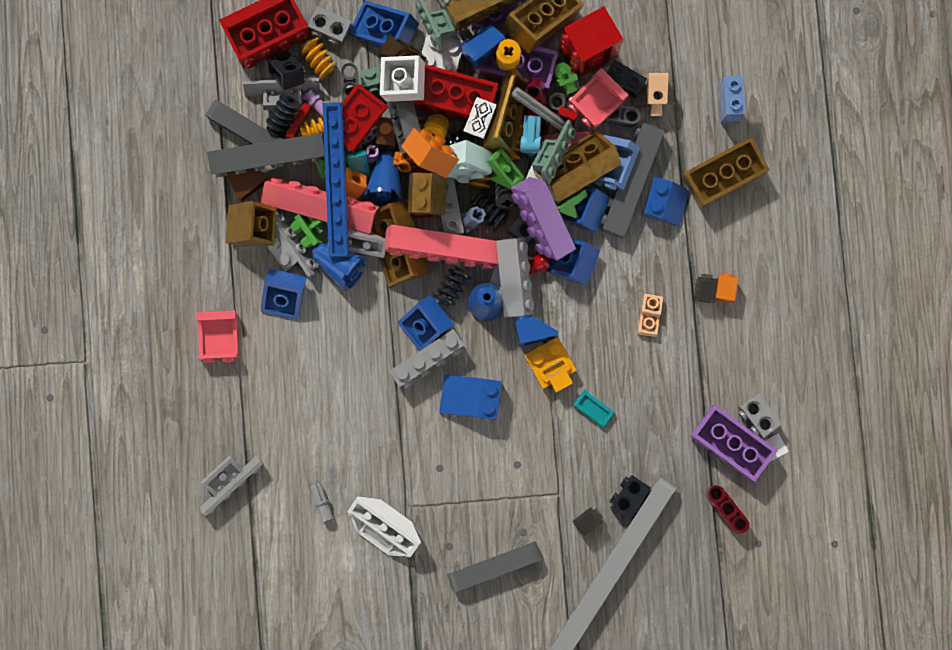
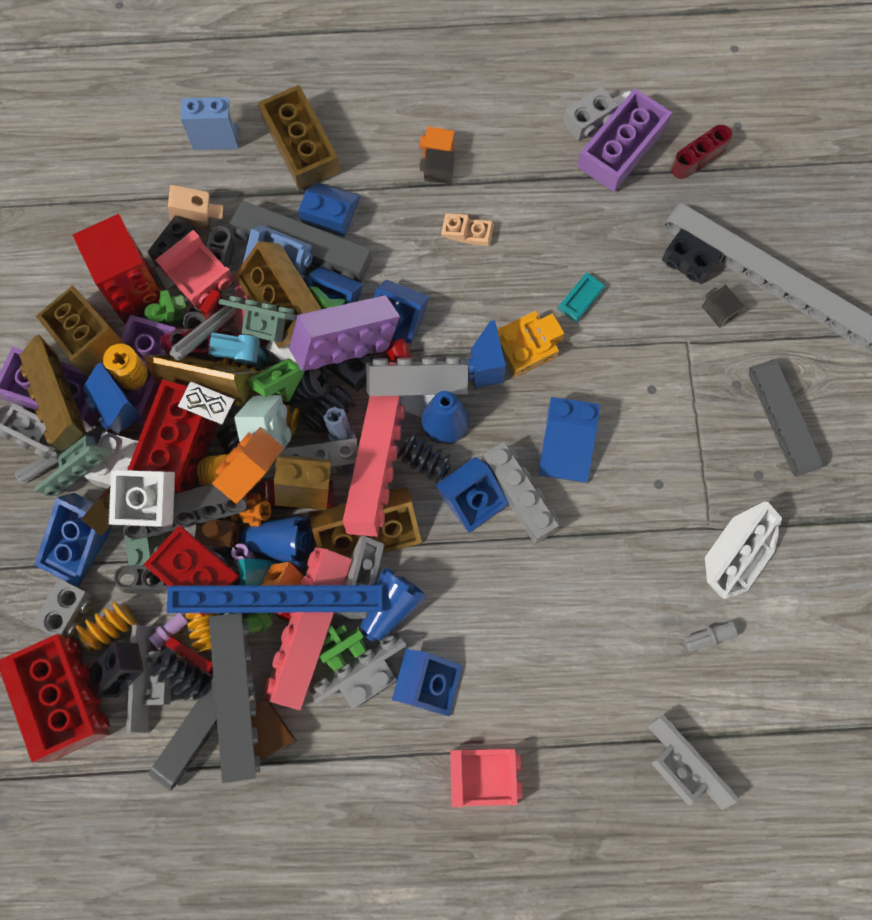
camera: 85 degrees left, 10 degrees down
(250, 224) = (330, 724): pearl gold slope -> none

